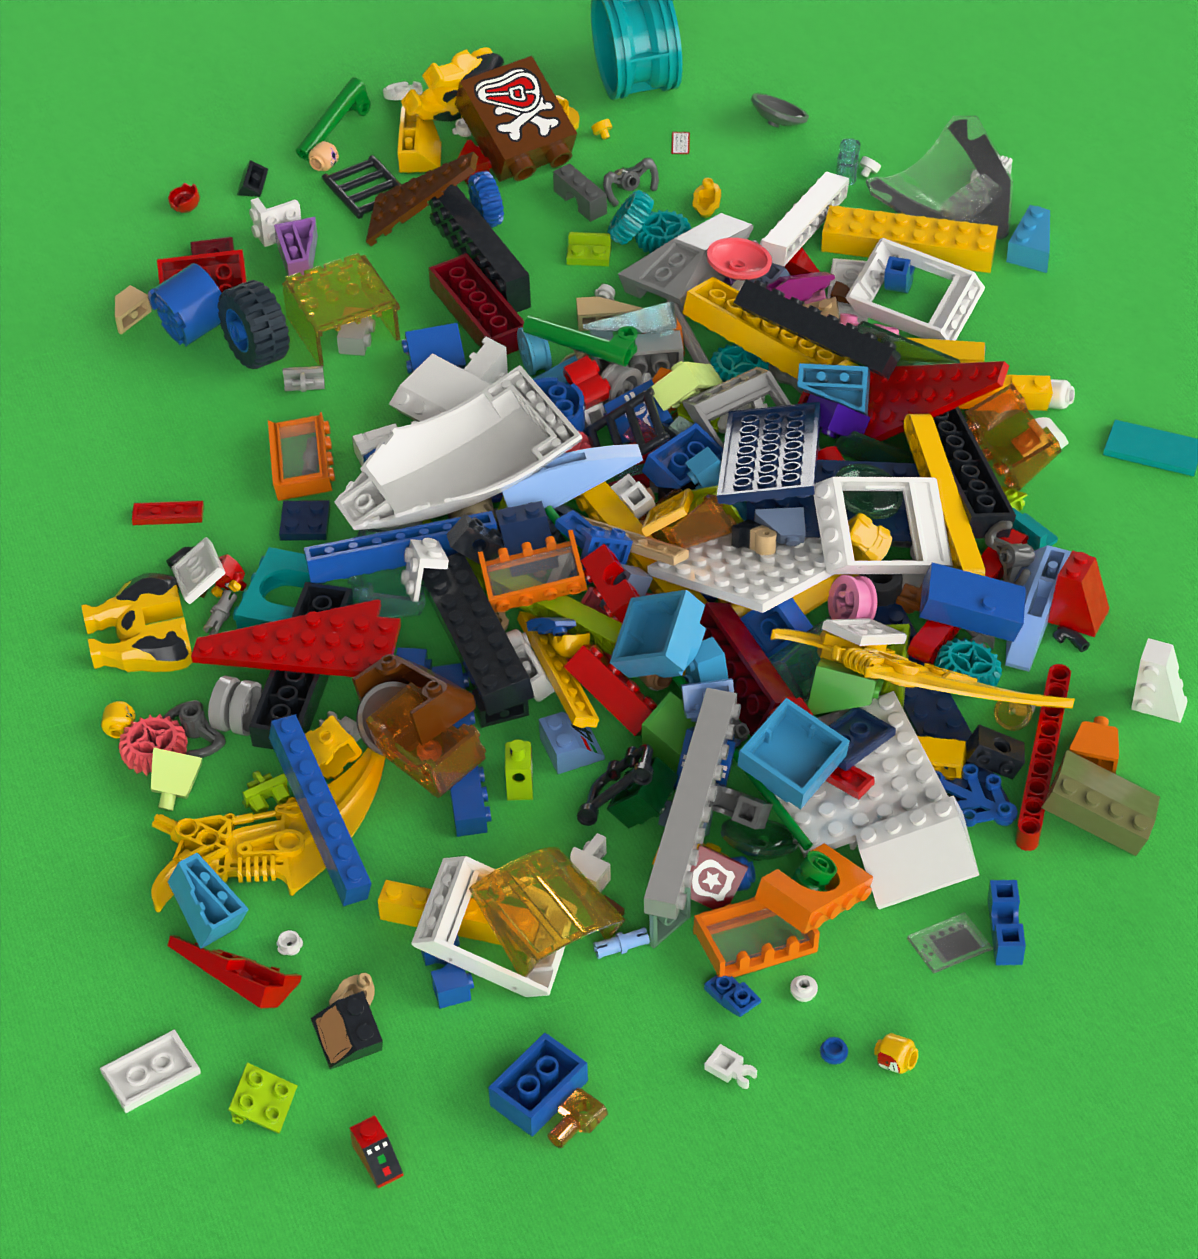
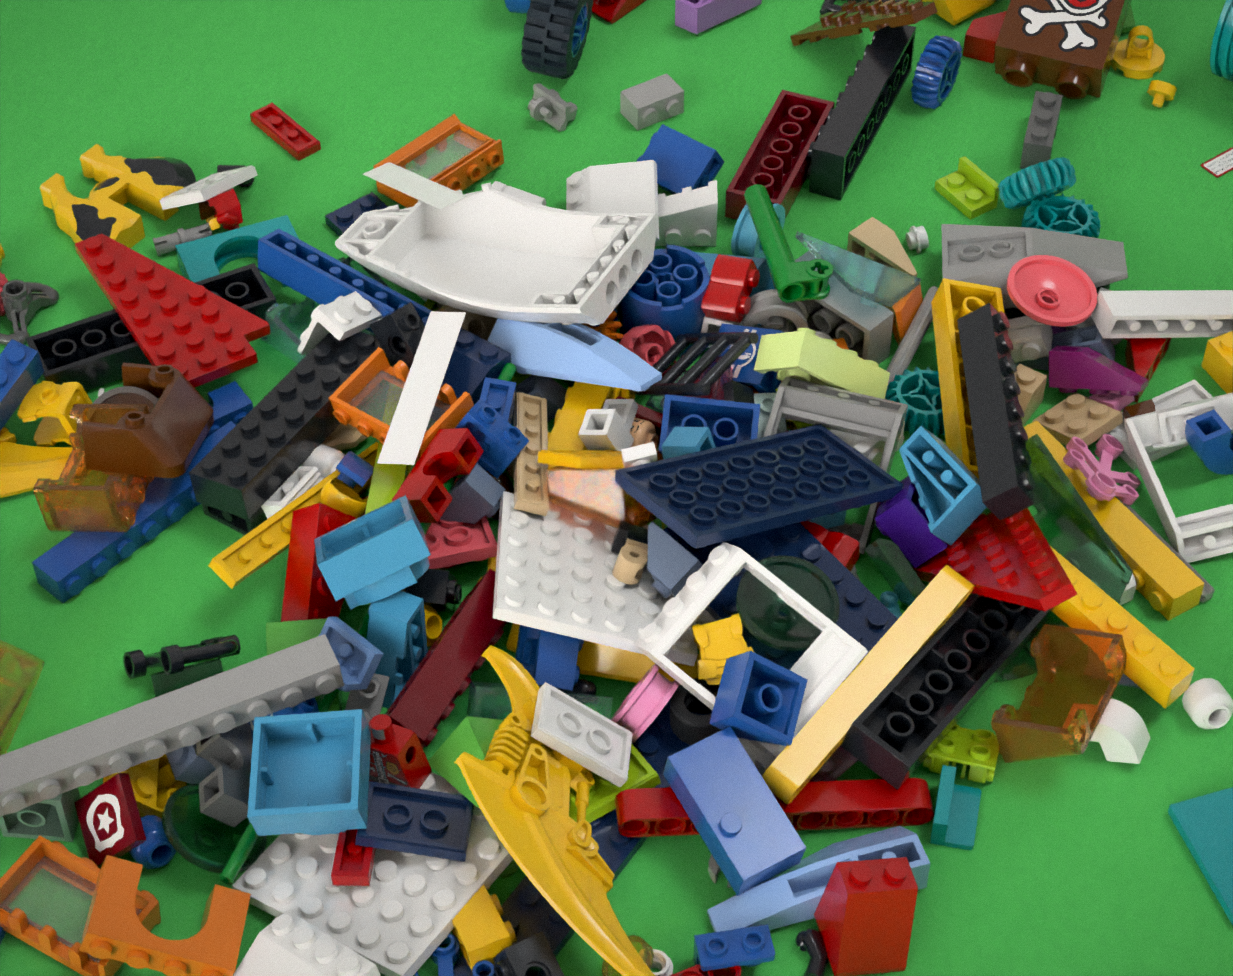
camera: 50 degrees right, 0 degrees up
(233, 704) = (50, 305): light grey wheel -> none
(336, 297) = (663, 54): clear yellow windscreen -> none
(336, 466) = (415, 185): none -> white sticker
(519, 760) = (150, 571): lime torso -> none
(538, 549) = (421, 388): none -> white sticker
(568, 744) = (231, 608): medium blue slope -> none
(590, 861) = (62, 704): white brick -> none
(630, 178) = (1110, 146): dark grey piece -> none
(707, 198) = (1156, 227): yellow arm -> none
(707, 486) = (639, 455): none -> white plate
(815, 871) = (179, 908): green wheel -> none
(923, 541) = (758, 699): none -> blue slope
(971, 660) = (651, 887): teal gear -> none
(1010, 555) = (860, 808): dark grey piece -> none
(1047, 663) = (734, 948): none -> blue bracket

